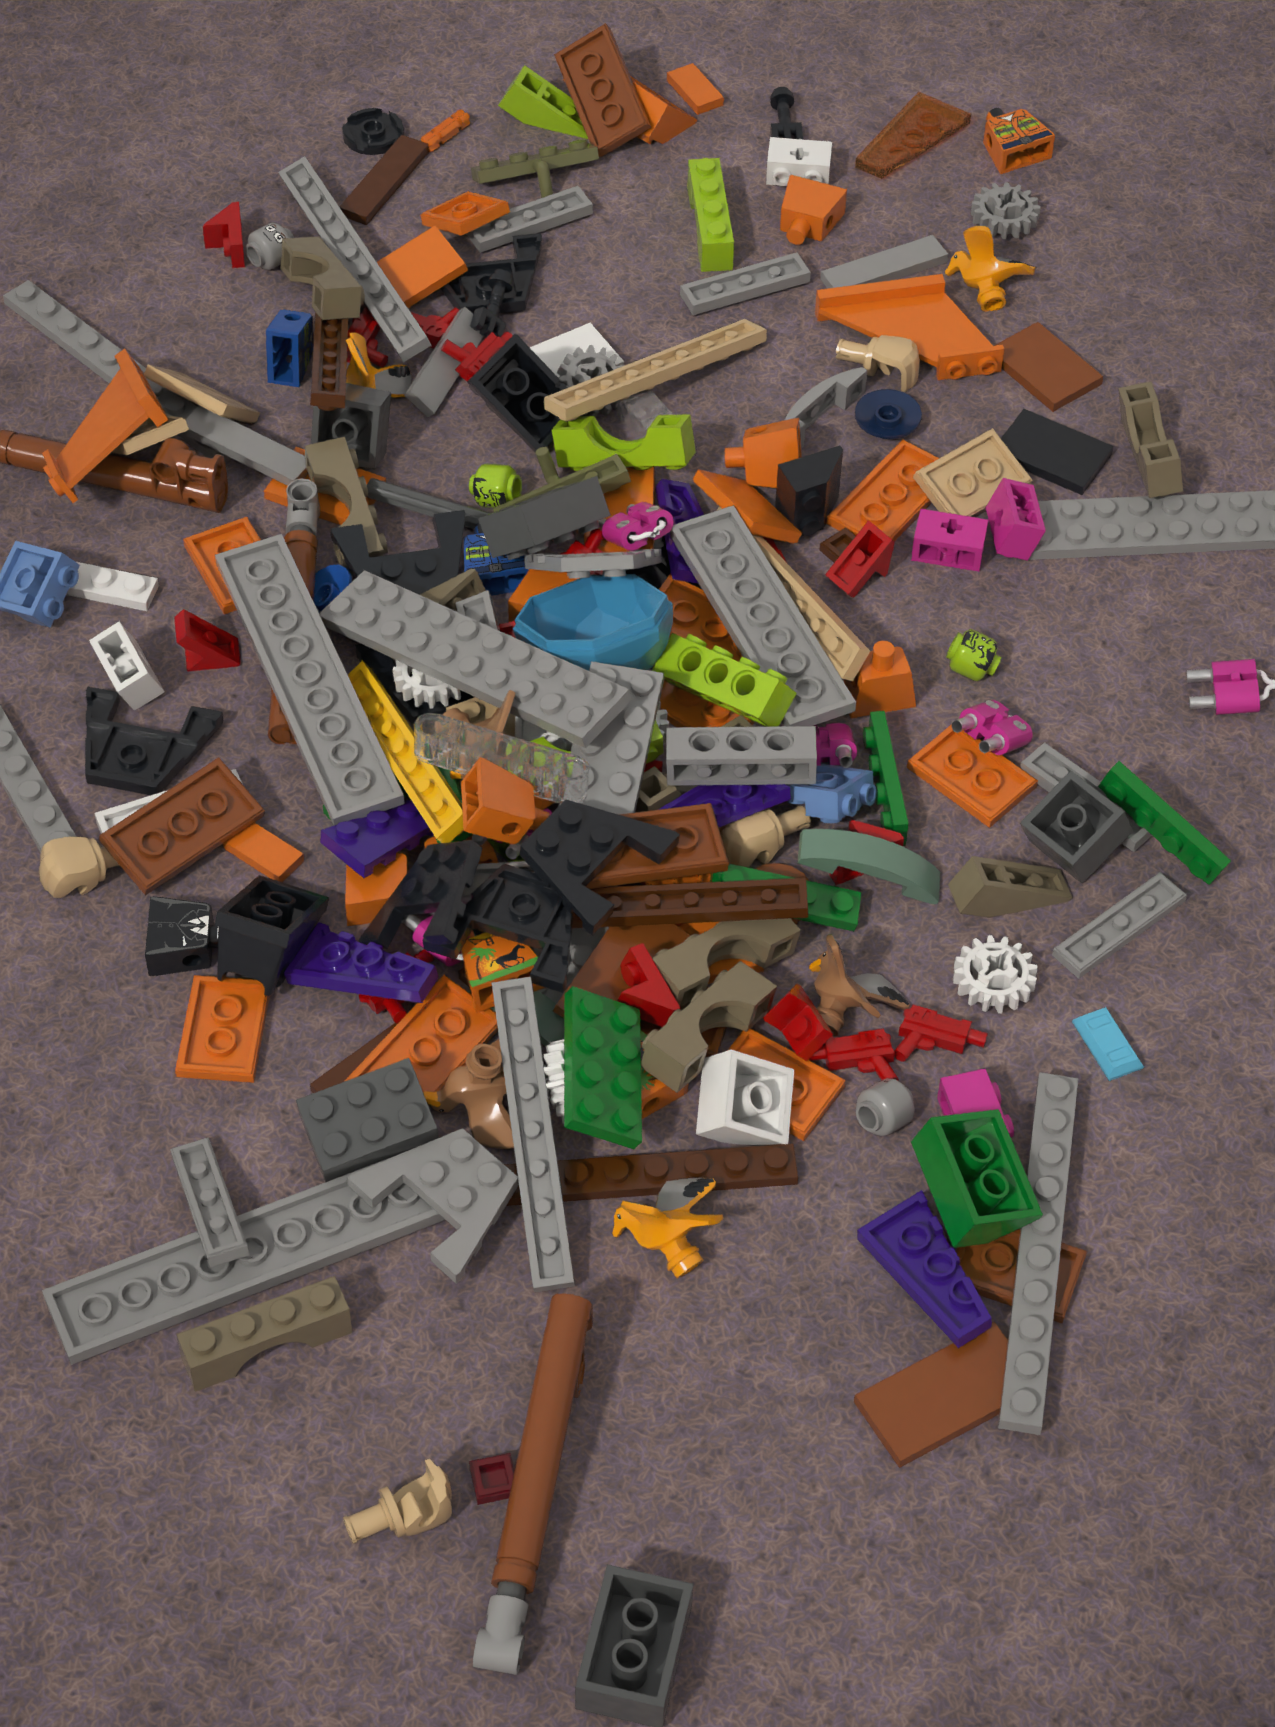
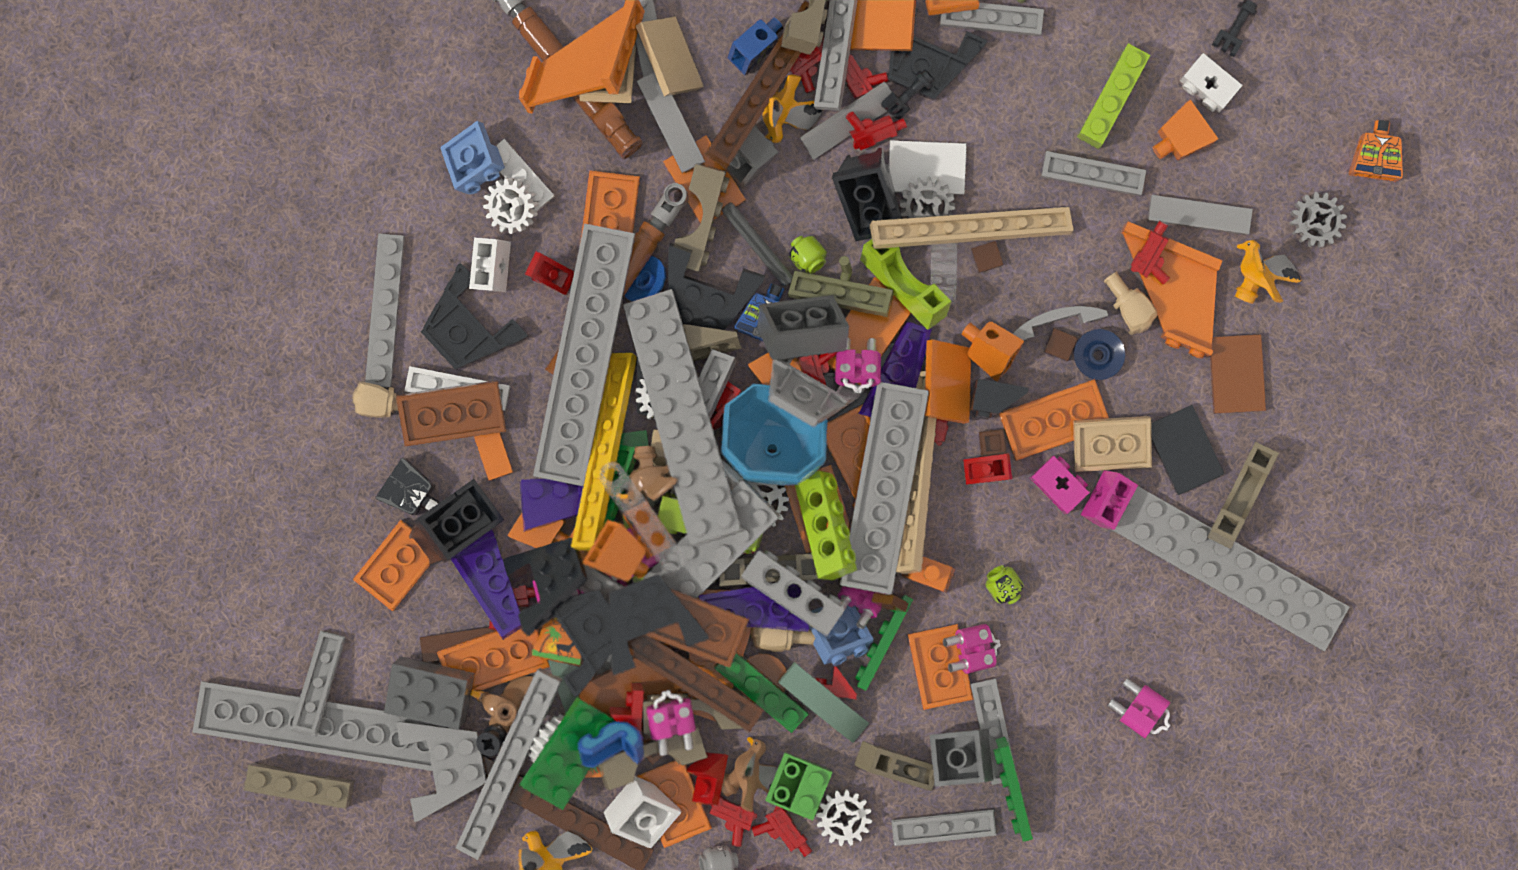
camera: 35 degrees right, 35 degrees up
(112, 589) = (522, 205): none -> white gear
(497, 1132) = (497, 736): none -> black wheel
(648, 1009) = (610, 741): none -> blue animal
(694, 401) = (987, 257): none -> reddish brown tile
(701, 950) = (670, 720): none -> dark pink piece
(839, 432) = (1060, 344): none -> reddish brown tile
(860, 719) = (890, 602): none -> reddish brown tile
(864, 305) = (1148, 258): none -> red piece
(910, 133) = (1315, 100): clear orange wing -> none
(916, 965) = (799, 785): none -> bright green slope

